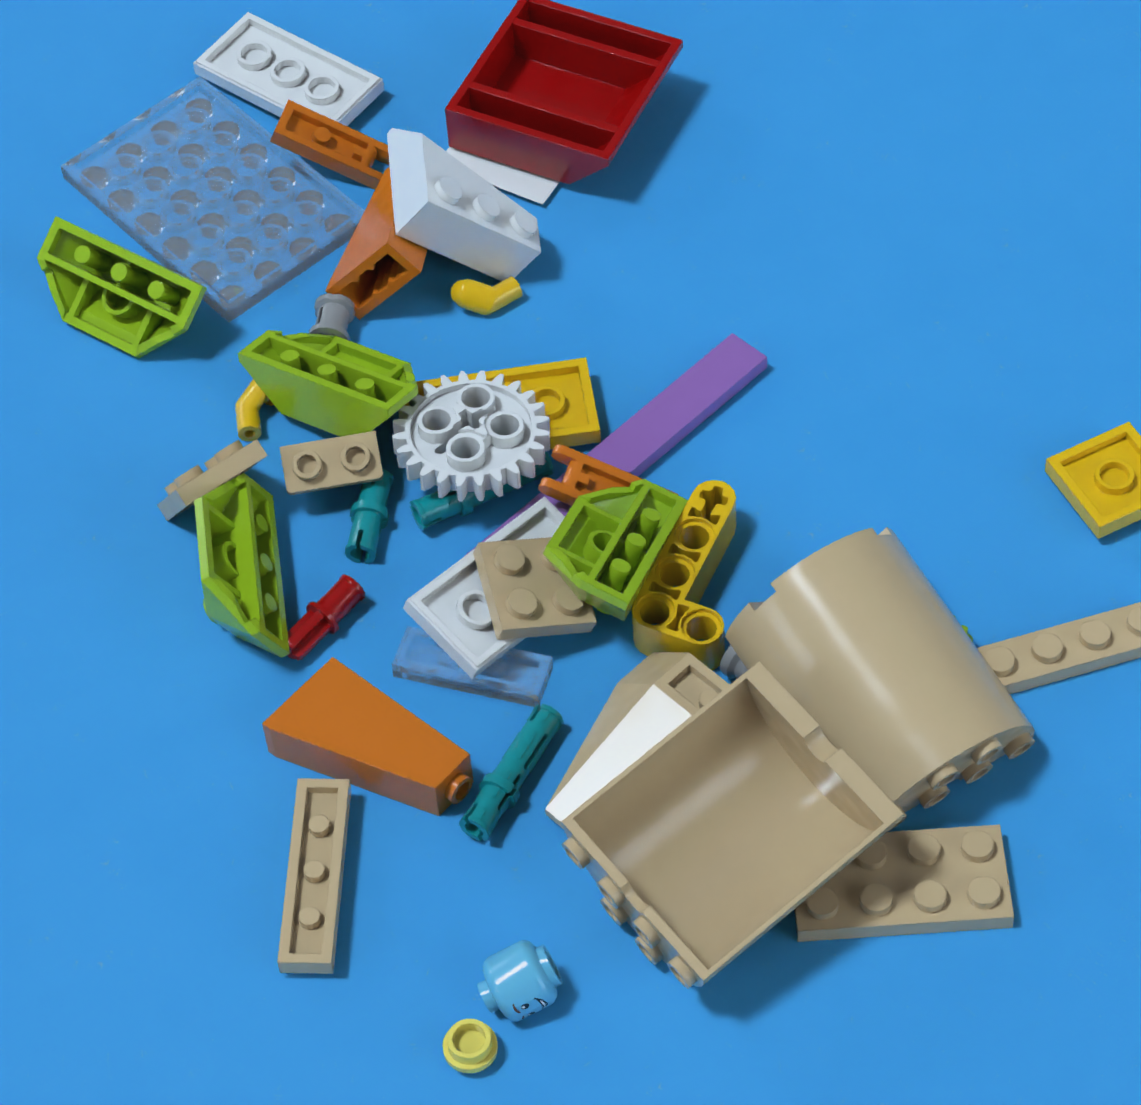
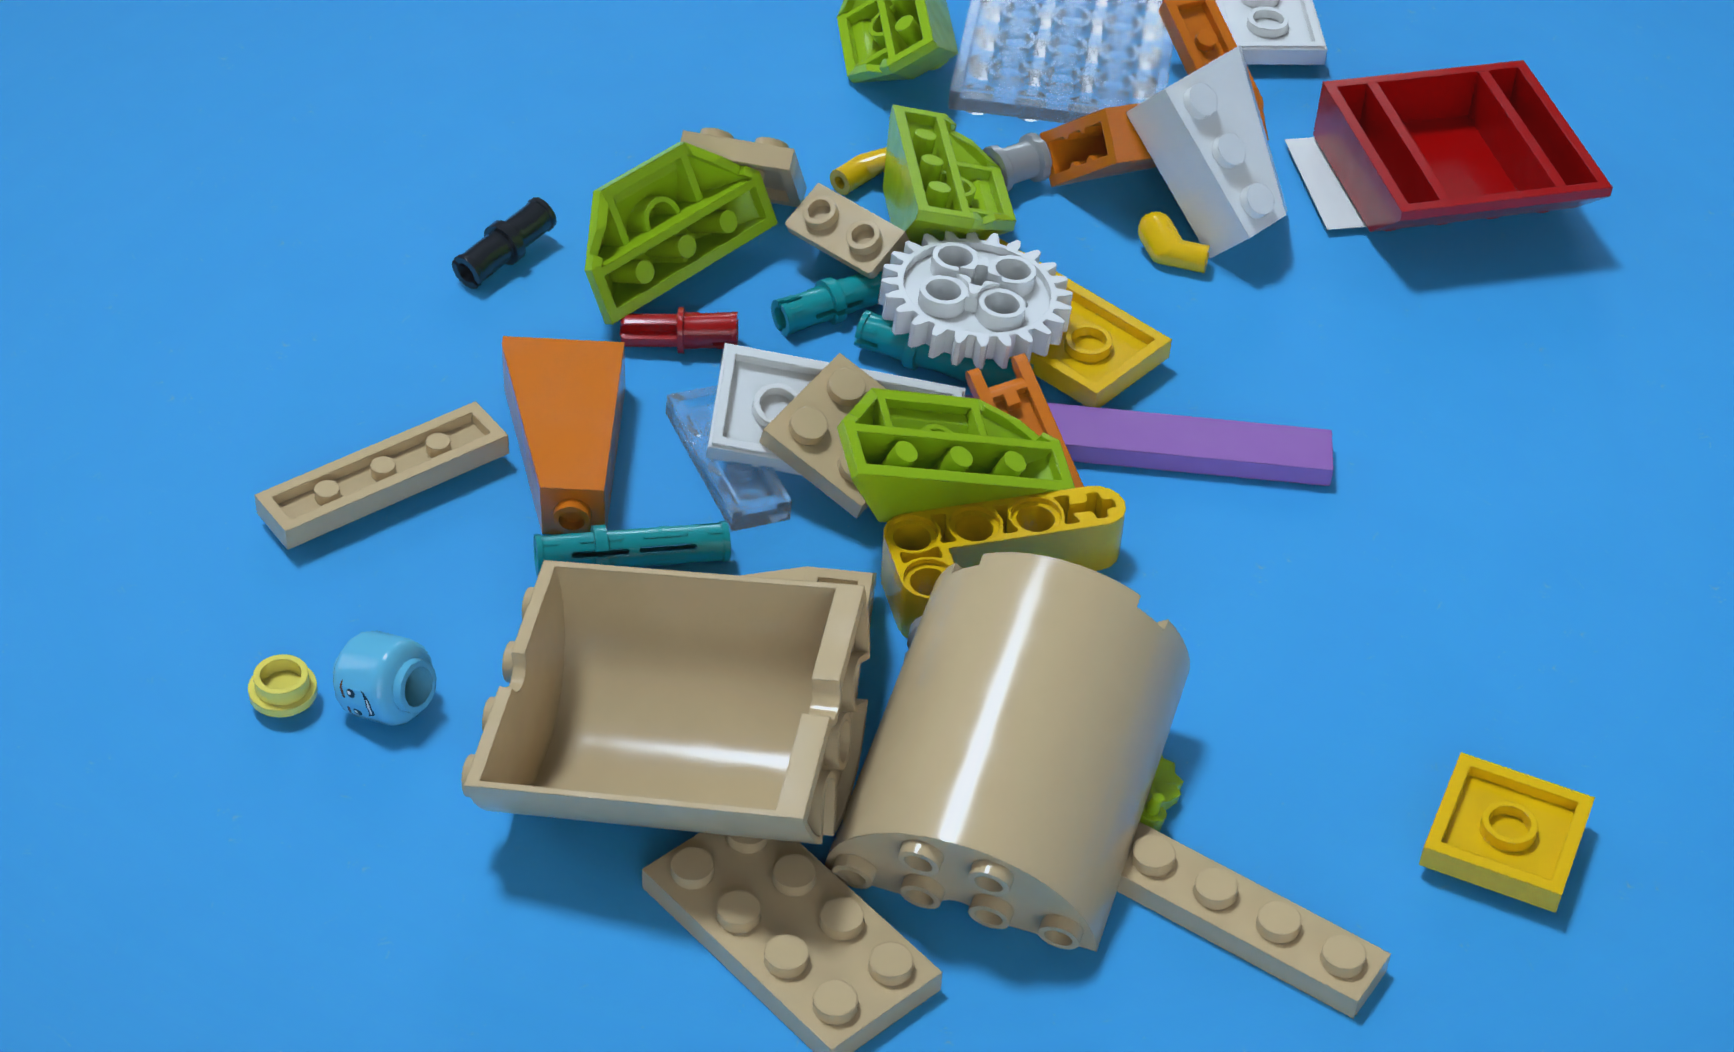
camera: 45 degrees right, 10 degrees down
(134, 667) = (504, 242): none -> black pin

